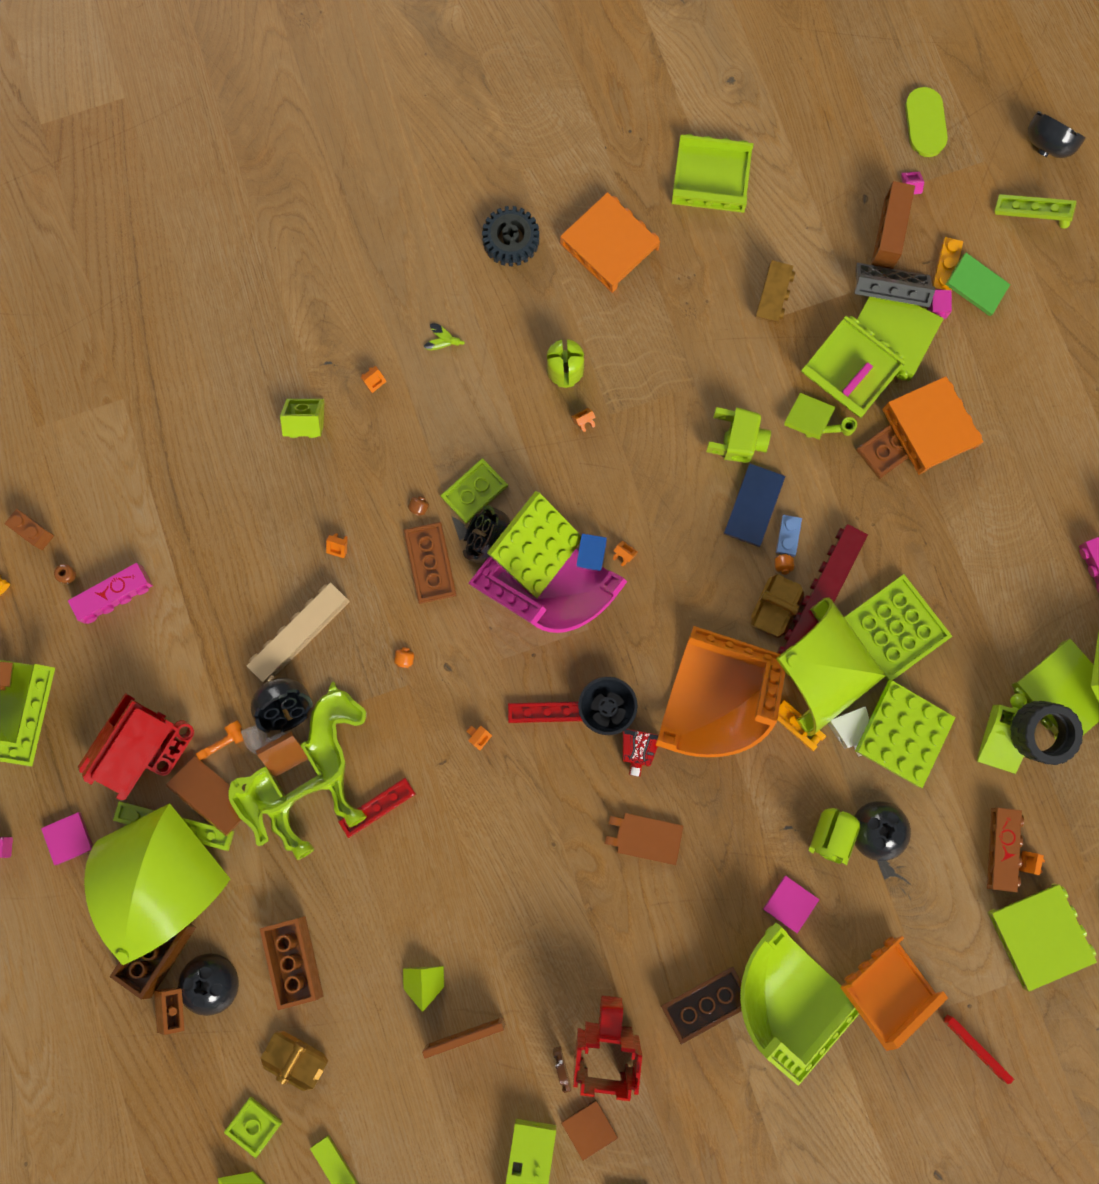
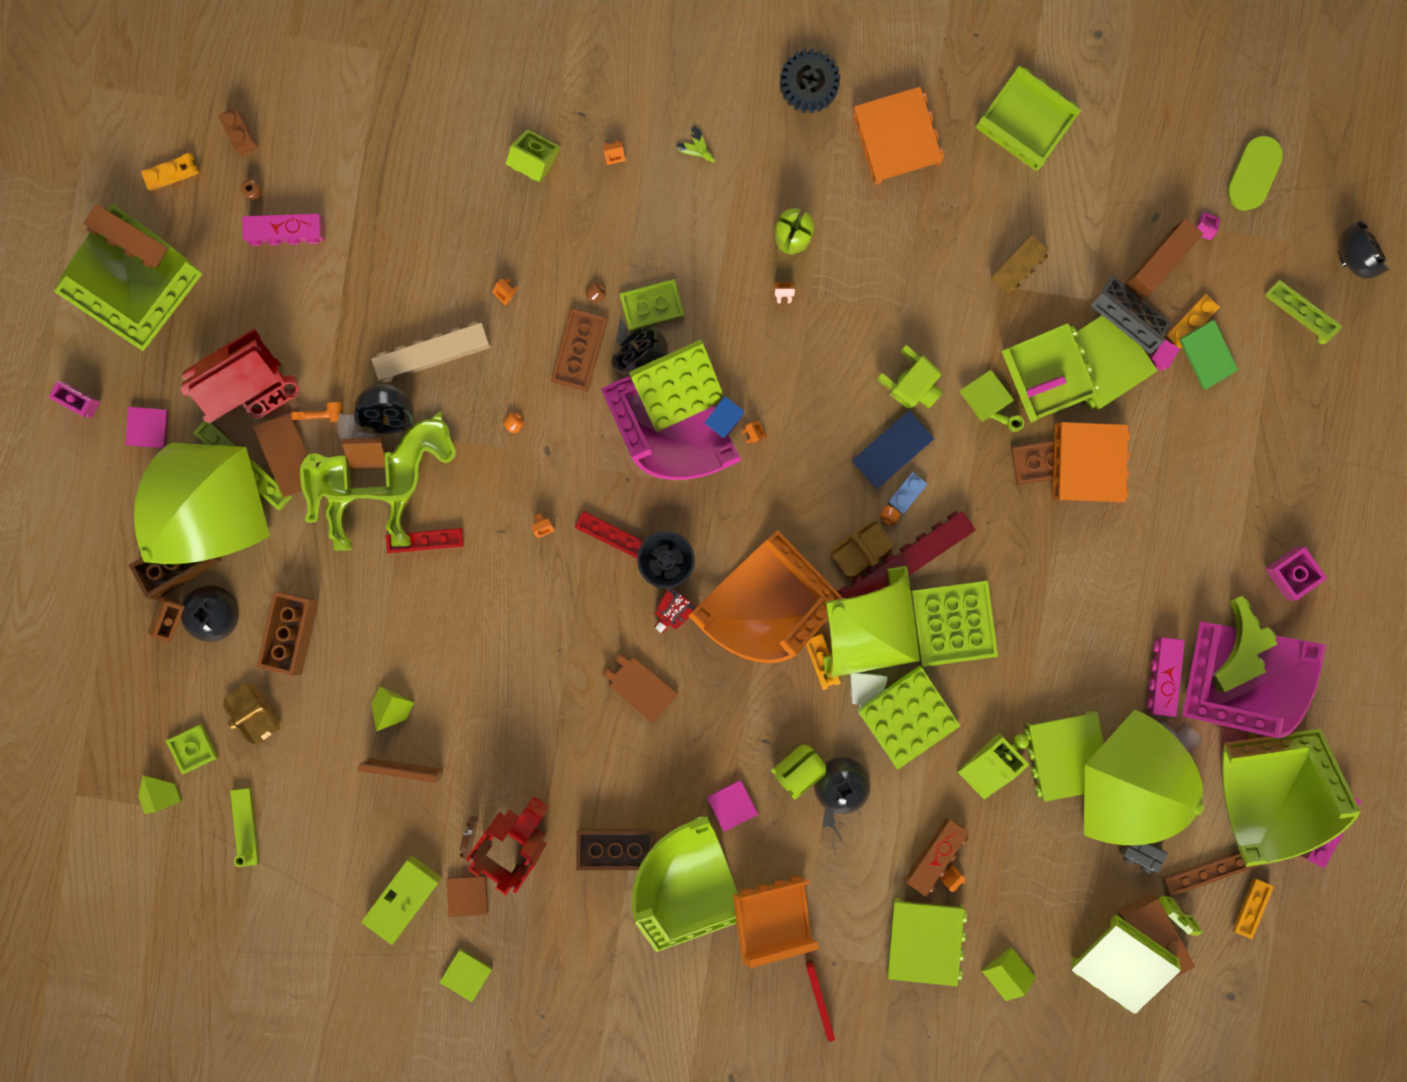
camera: 20 degrees right, 10 degrees up
(1067, 740) = (1038, 799): black tyre -> none

